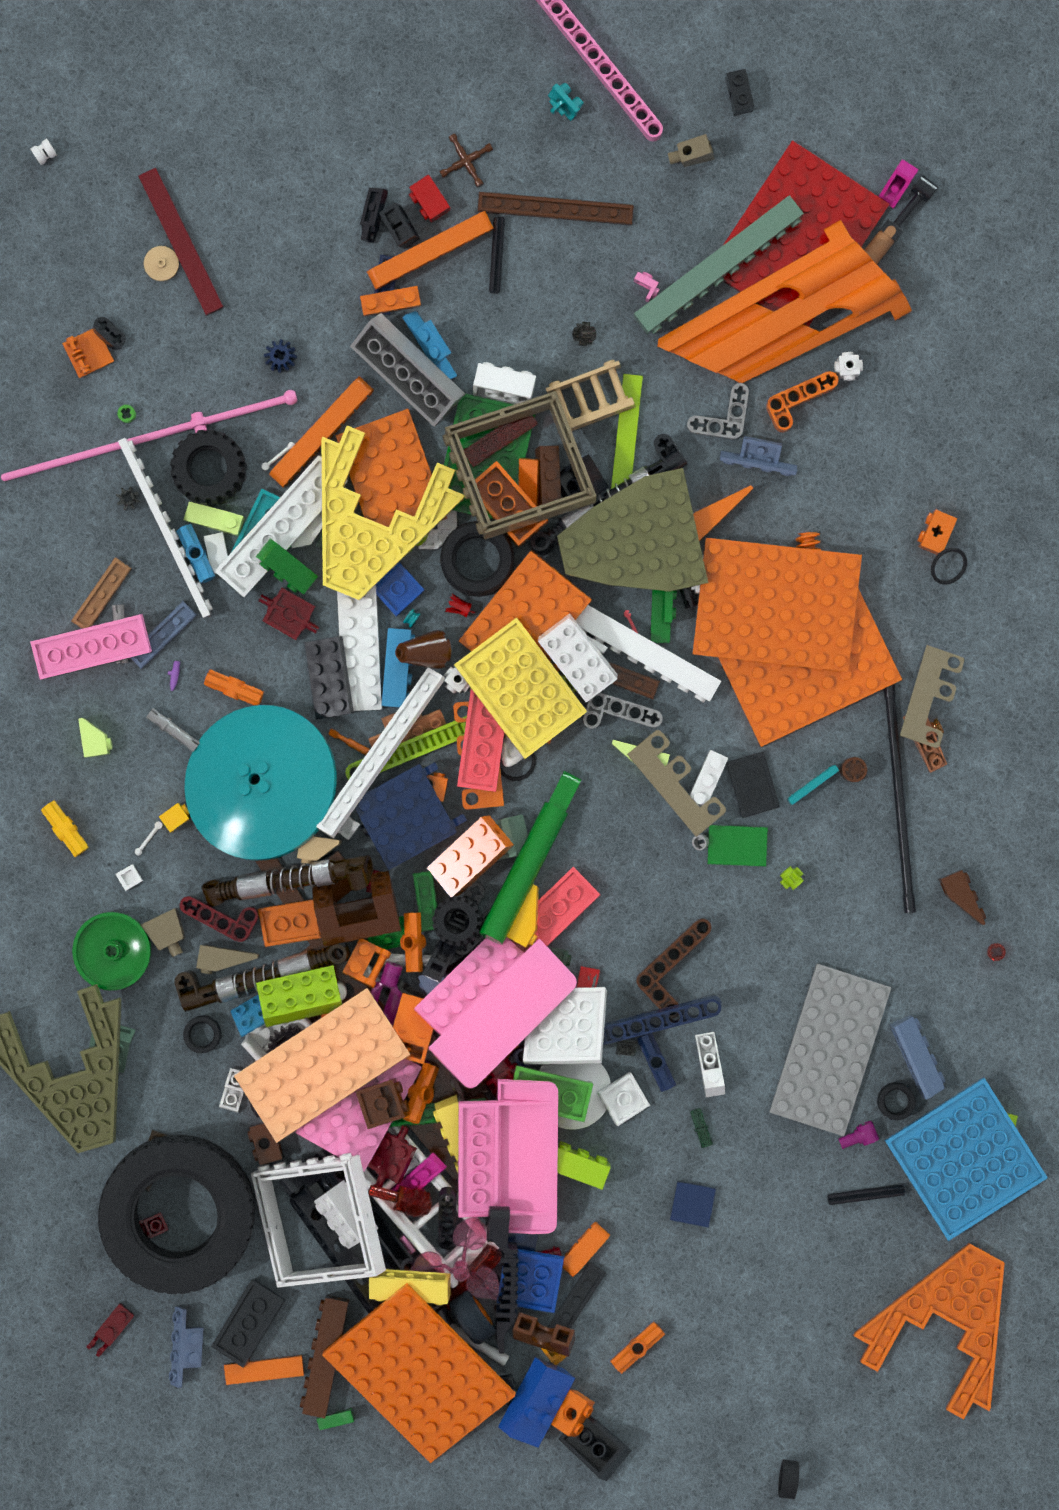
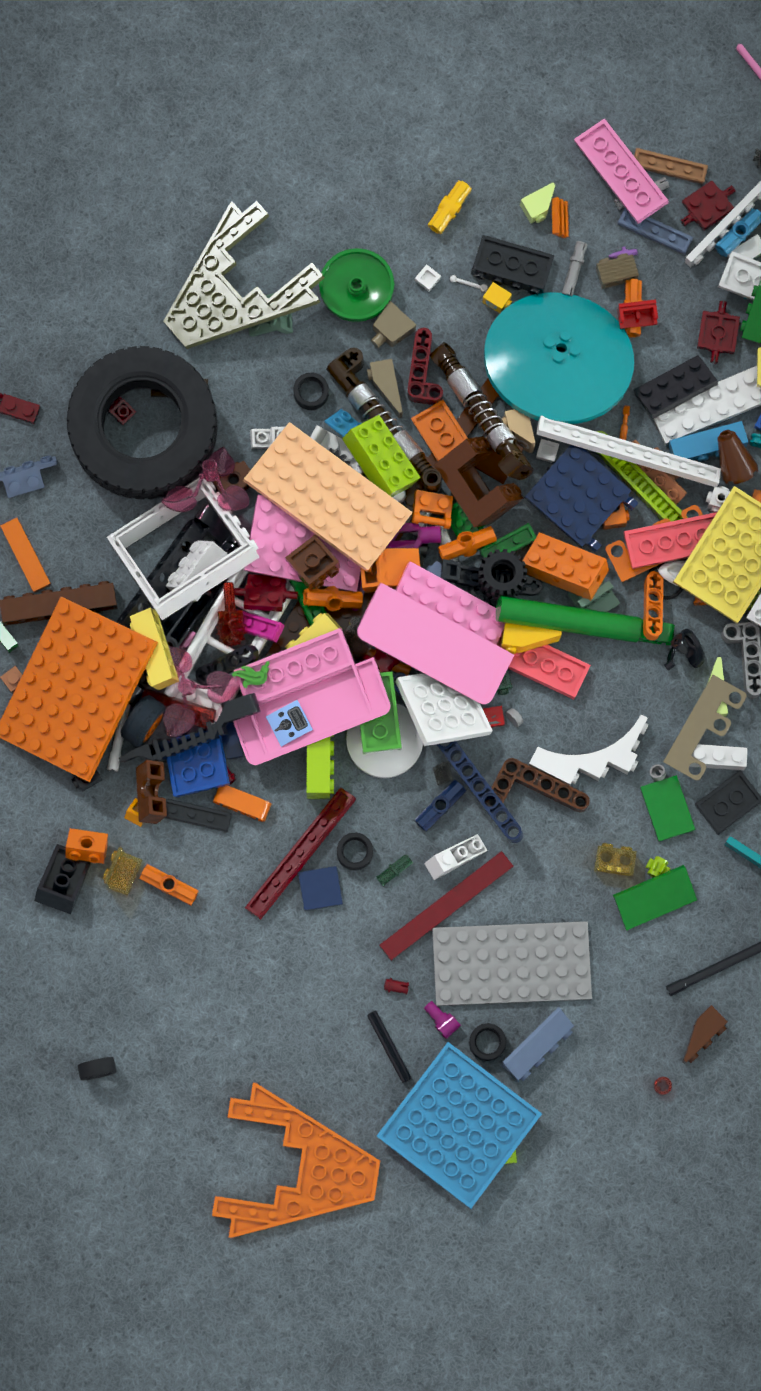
camera: 65 degrees right, 10 degrees down
(115, 724) = (560, 218): none -> orange tile
(147, 789) = (512, 265): none -> black bracket
(156, 573) = (707, 205): none -> dark red plate
(190, 689) = (617, 270): none -> dark tan brick
(245, 688) = (637, 314): none -> red hinge
(248, 1323) = (63, 524): black plate -> none
(290, 1158) = (219, 464): none -> clear pink plant
(381, 1425) = (11, 678): none -> nougat plate
(472, 1202) = (251, 676): none -> bright green piece
(530, 1182) = (289, 723): none -> sticker
(536, 1402) = (85, 808): blue brick -> none
(538, 787) = (656, 606): none -> orange beam
(596, 761) = (693, 652): none -> black helmet
(597, 958) = (514, 717): none -> light grey tile
(609, 1388) = (122, 871): none -> clear yellow bracket
(623, 1099) = (394, 788): white tile -> none
(652, 1211) = (300, 853): none -> dark red tile
(670, 873) = (594, 764): none -> white arch
(670, 1144) = (359, 837): none -> black tyre
(752, 1090) = (446, 905): none -> dark red tile
(773, 917) = (615, 866): none -> clear yellow brick
(811, 1168) = (396, 986): none -> dark red pin
(819, 892) = (655, 897): none -> green tile

